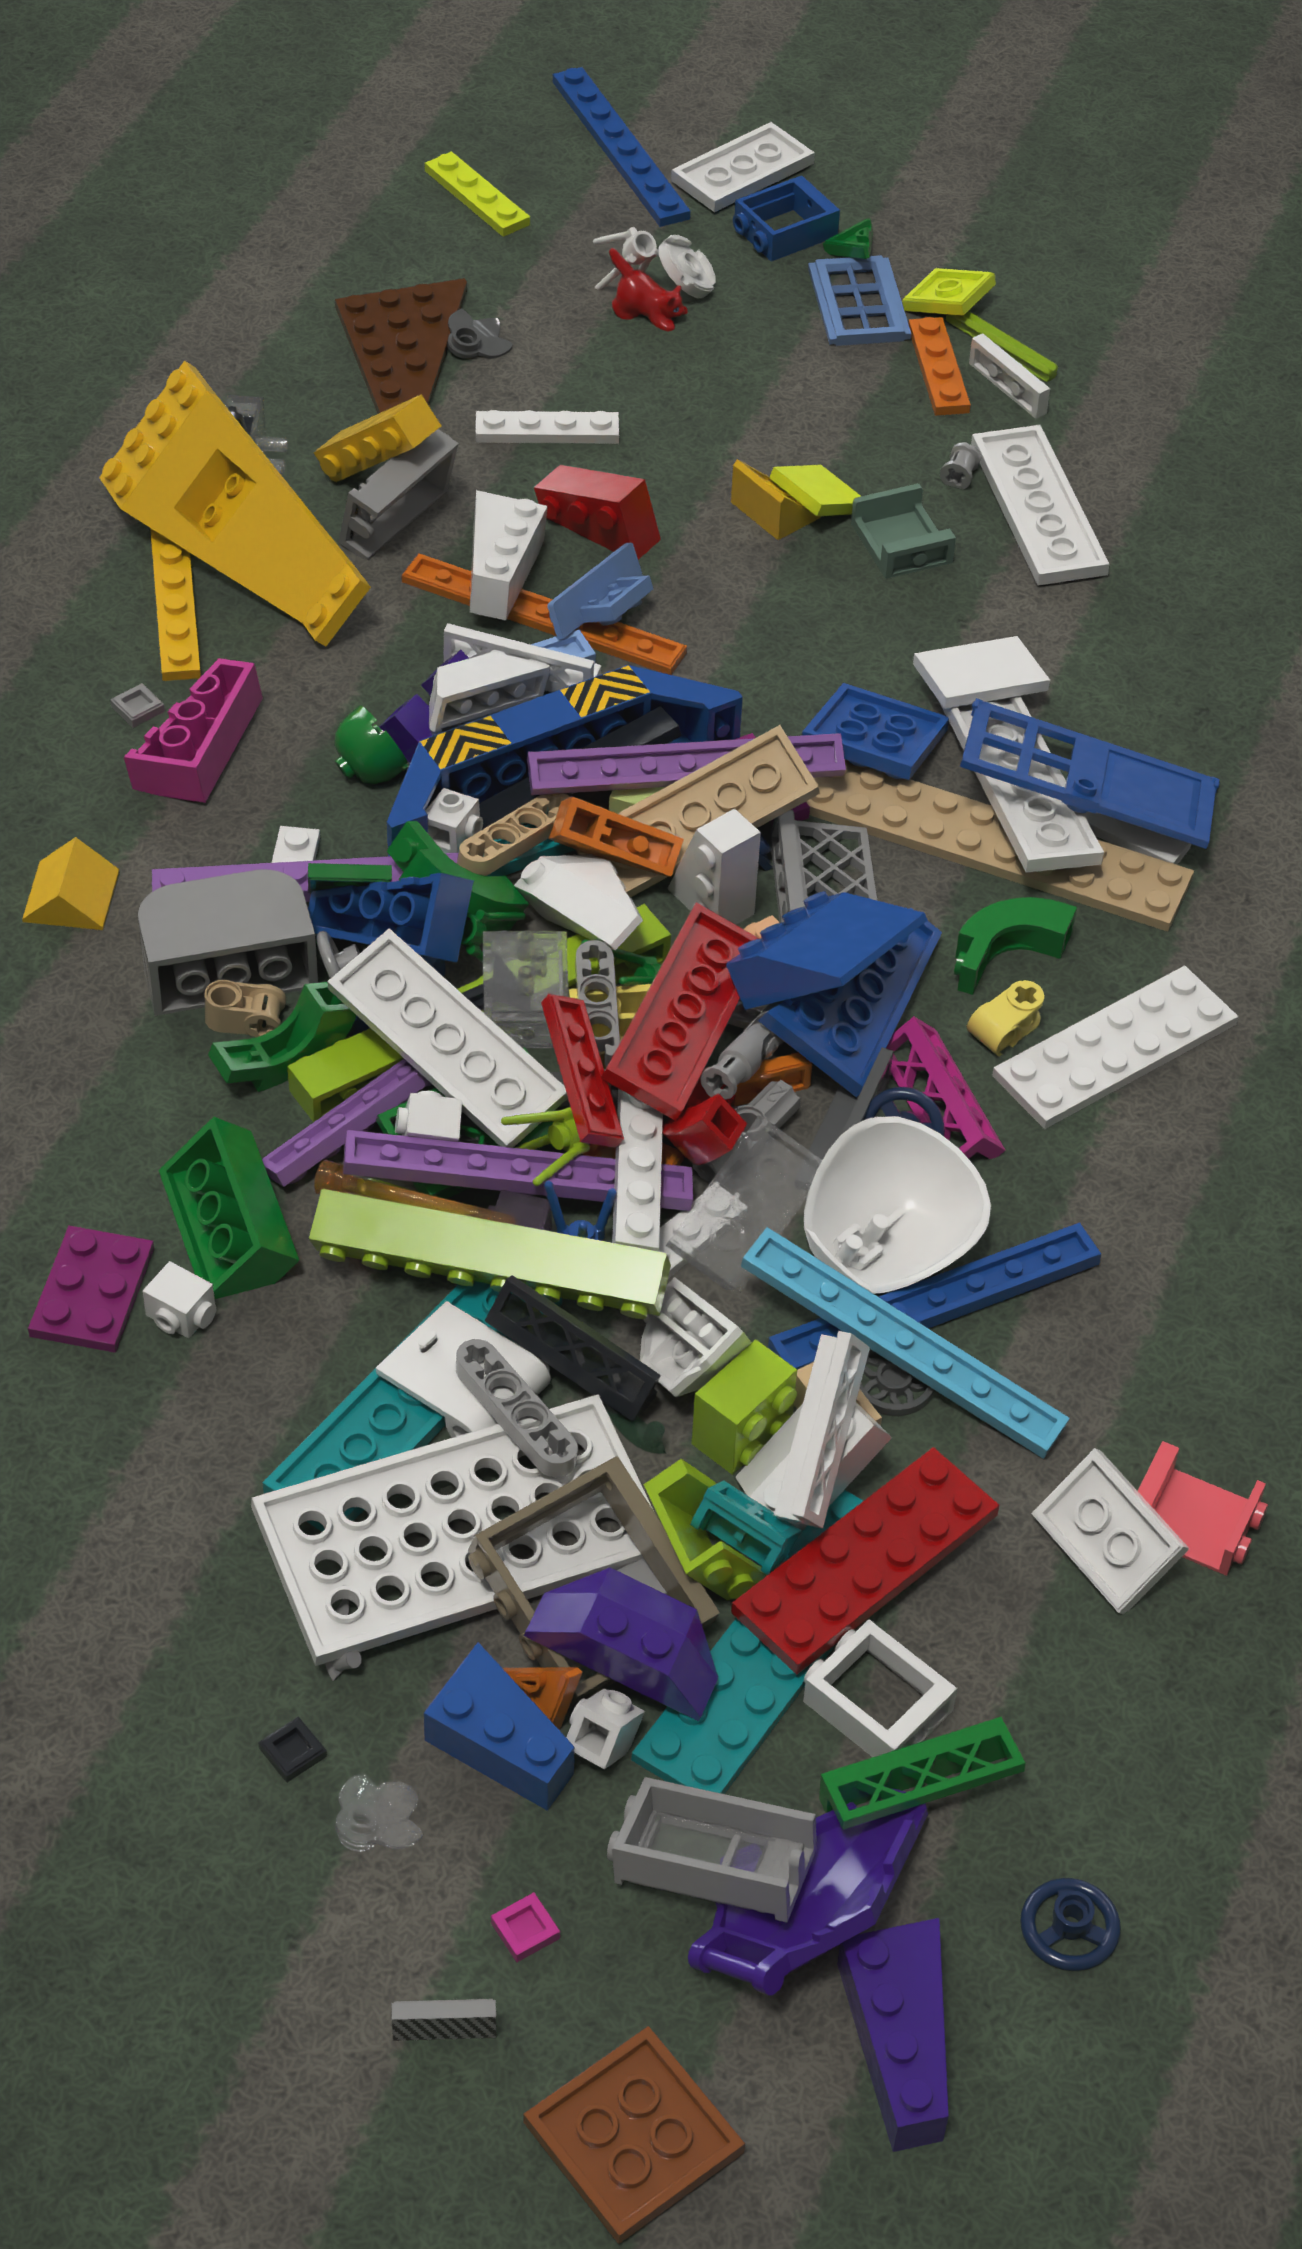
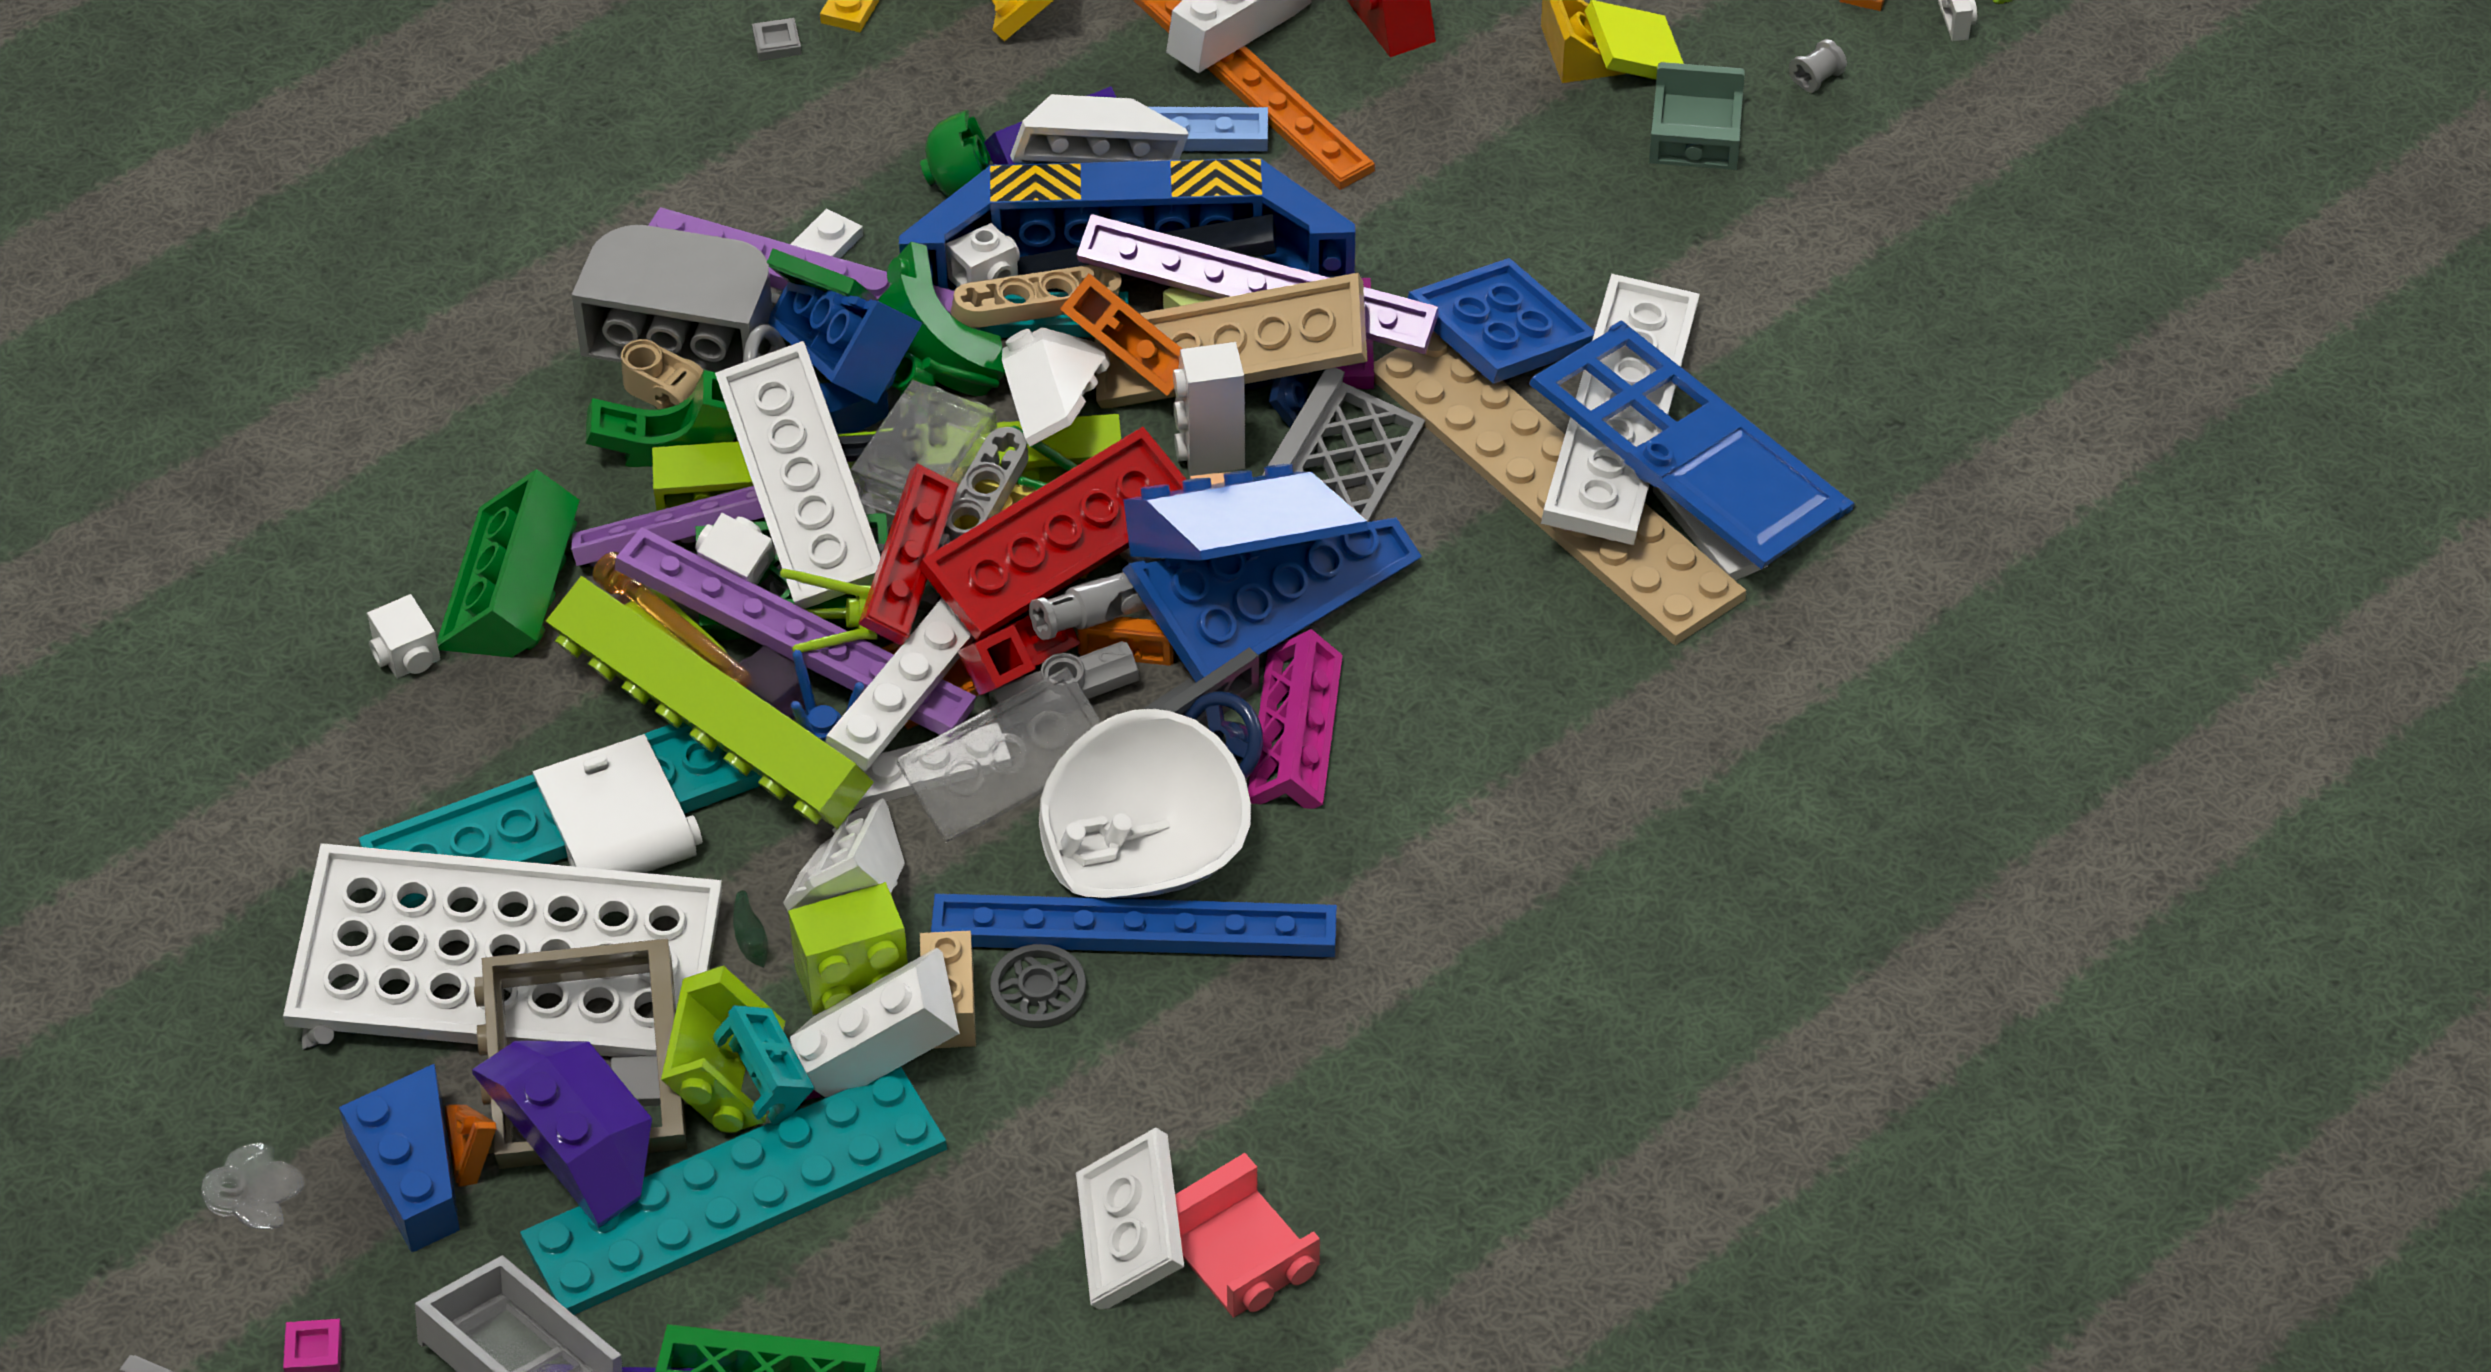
camera: 30 degrees right, 0 degrees up
(72, 888) = (586, 202): yellow slope -> none
(91, 1289) = (331, 596): magenta plate -> none
(199, 736) = (807, 87): dark pink wedge -> none
(292, 1749) = (221, 1096): black tile -> none
(521, 1404) = (625, 859): light grey beam -> none
(564, 668) = (1205, 137): white fence -> none
(569, 1354) = (722, 828): black fence -> none
(601, 593) = (1314, 75): medium blue bracket -> none
(604, 1727) = (502, 1195): white brick -> none
(822, 1429) = (869, 992): white fence -> none
(852, 1721) = (822, 1314): white window -> none
(864, 1560) = (866, 1144): red plate -> none
(905, 1342) = (1059, 953): medium azure plate -> none
(981, 671) = (1660, 295): white tile -> none
(1007, 926) = (1487, 574): green arch -> none
(1008, 1016) = (1418, 671): light yellow piece -> none
(1040, 505) = (1876, 137): white plate -> none
(1114, 1046) = (1522, 742): white plate -> none

